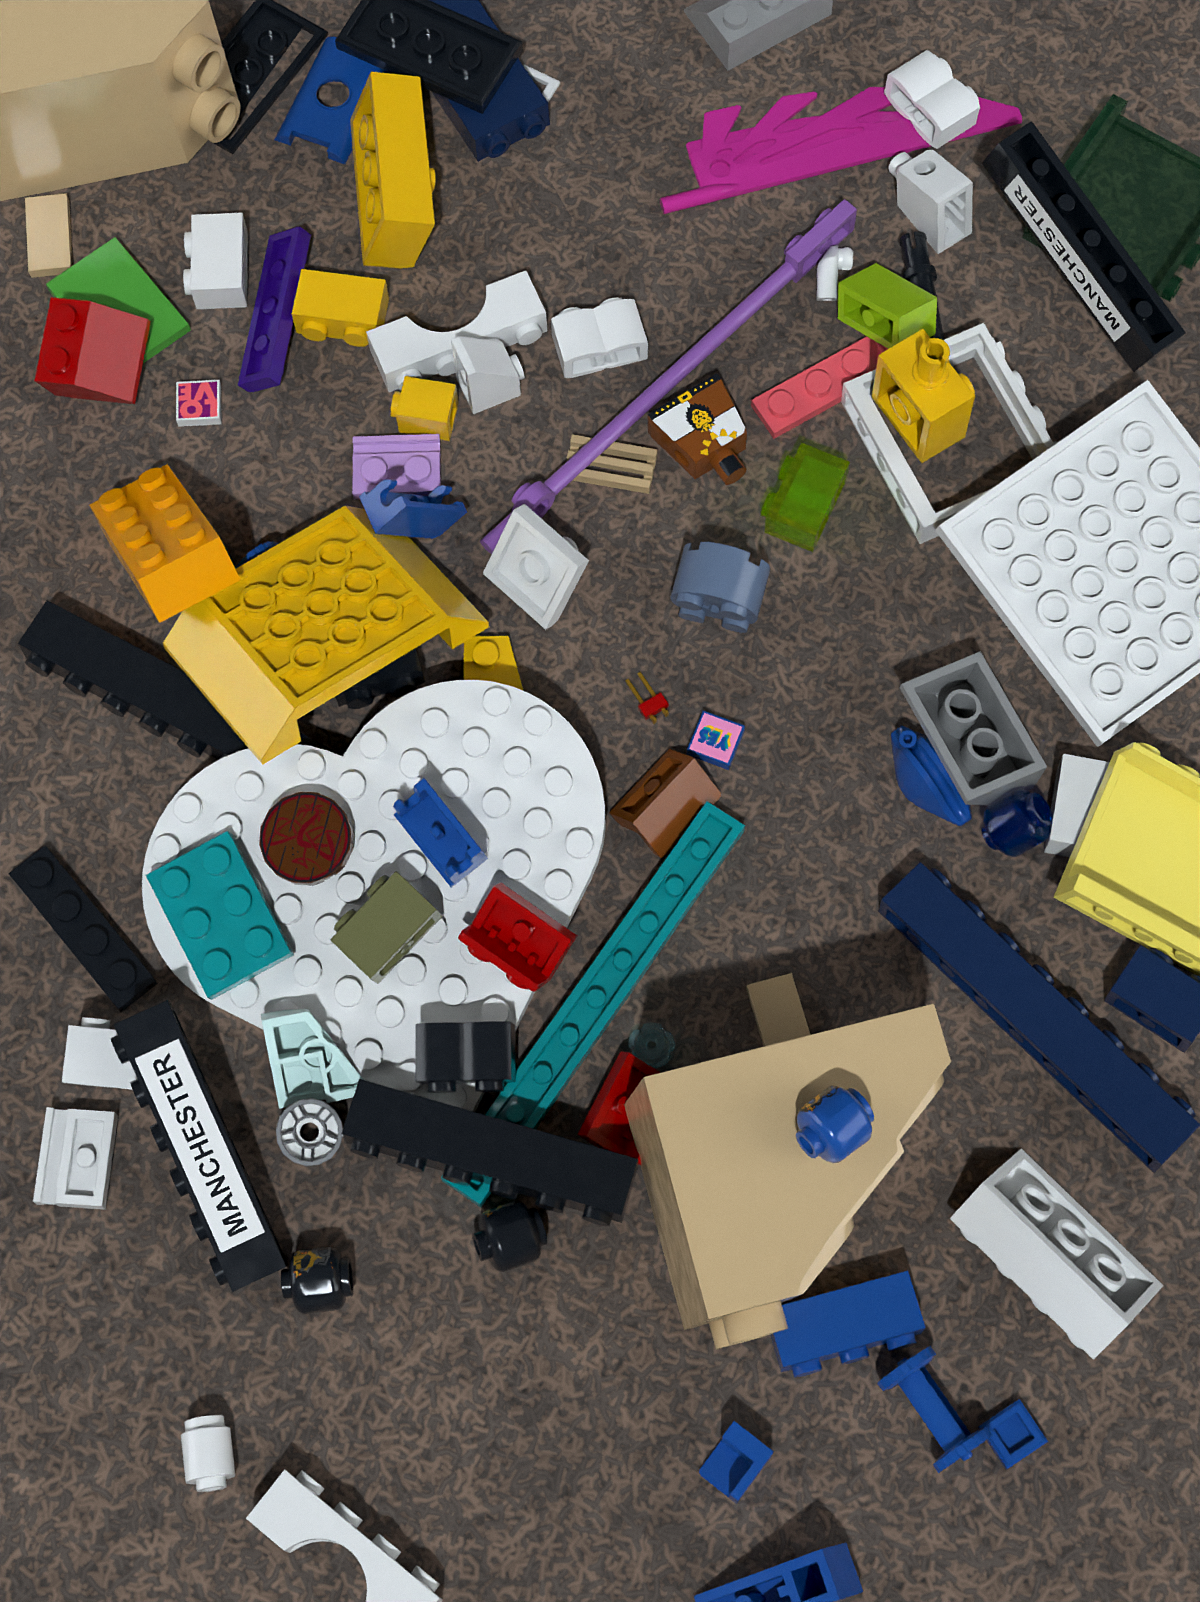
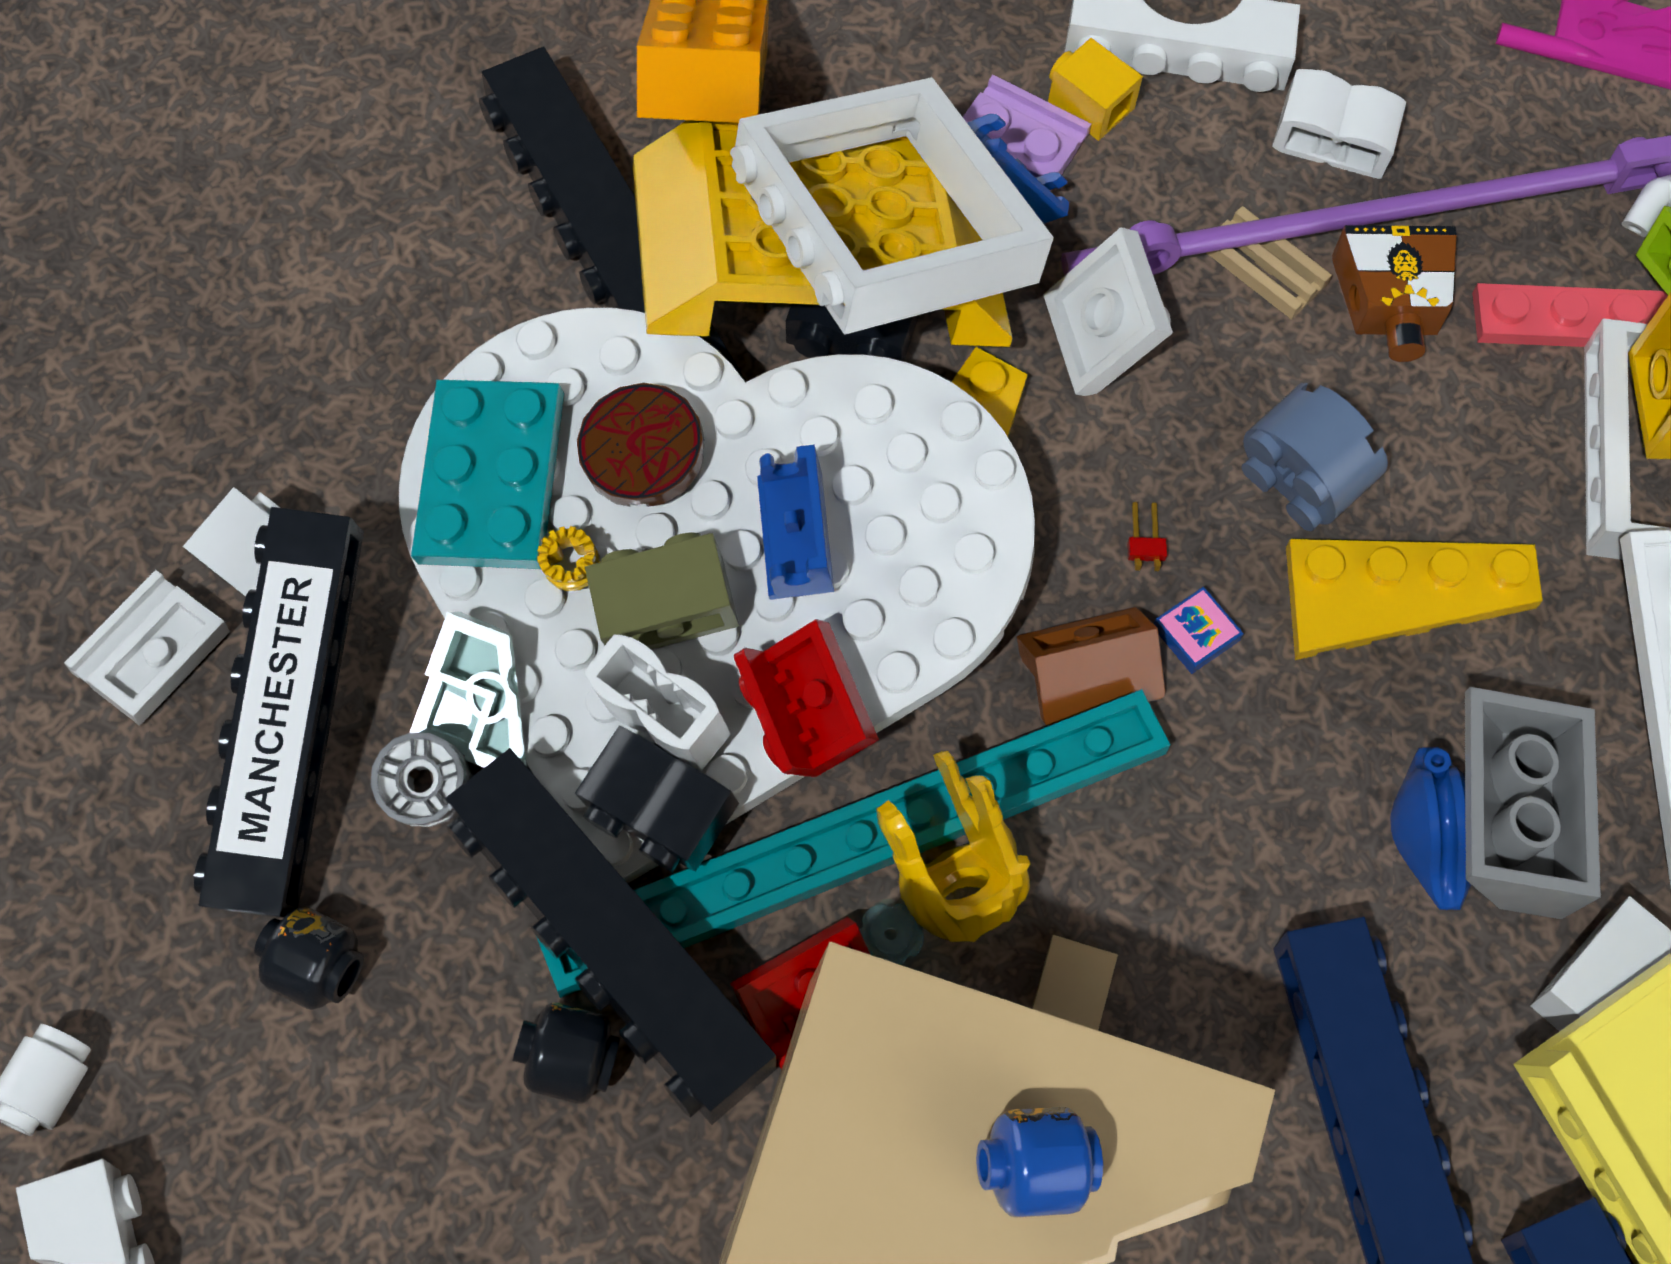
camera: 25 degrees right, 5 degrees down
(83, 928) = (340, 408): black plate -> none
(296, 941) = (552, 553): none -> yellow bush
(392, 530) = (1011, 233): none -> white window
(416, 996) = (650, 700): none -> white brick
(486, 372) = (1185, 83): white slope -> none
(679, 966) = (985, 863): none -> yellow piece
(805, 497) = (1478, 420): clear neon green brick -> none
(812, 643) = (1386, 589): none -> yellow wing
(1017, 822) = (1518, 945): clear blue head -> none

